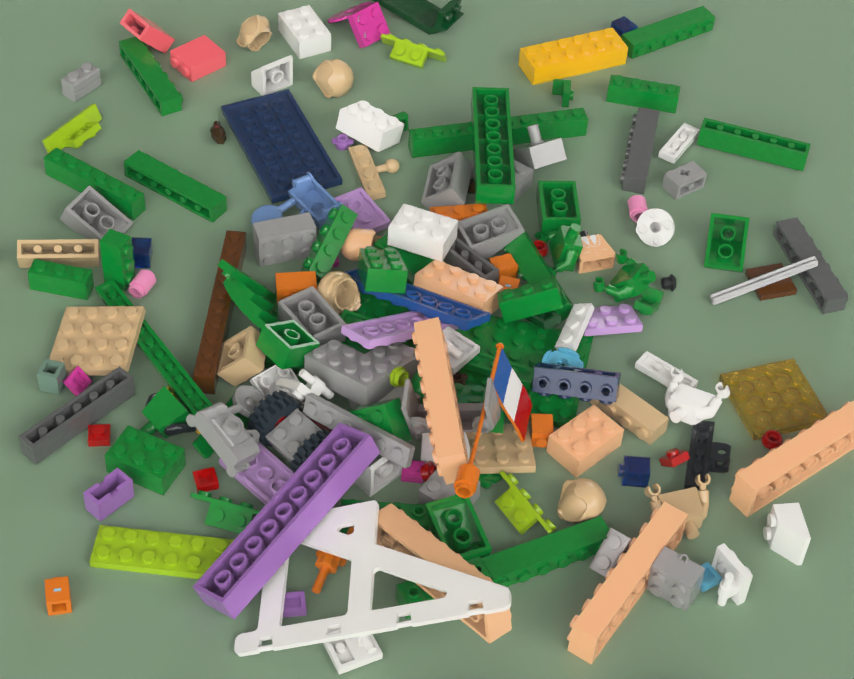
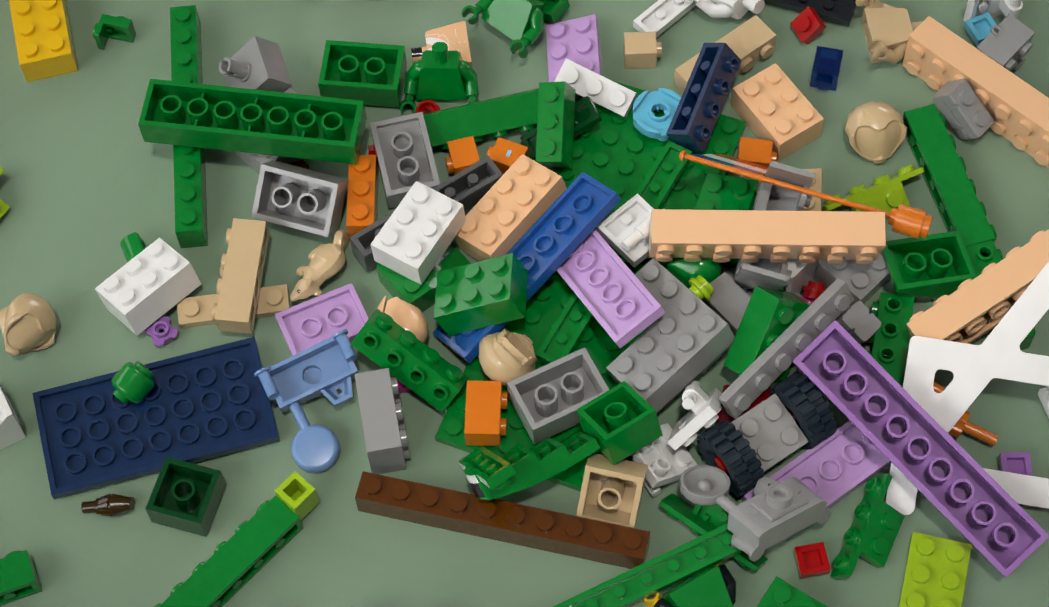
camera: 75 degrees left, 15 degrees up
(223, 160) = (186, 496): none -> dark green brick
(228, 208) = (298, 495): none -> lime brick
(297, 123) = (132, 382): none -> green head
(382, 162) = (241, 276): none -> tan brick
(394, 483) = (859, 322): none -> light grey brick
(395, 202) = (324, 264): none -> tan animal
(622, 357) = (641, 50): none -> tan brick

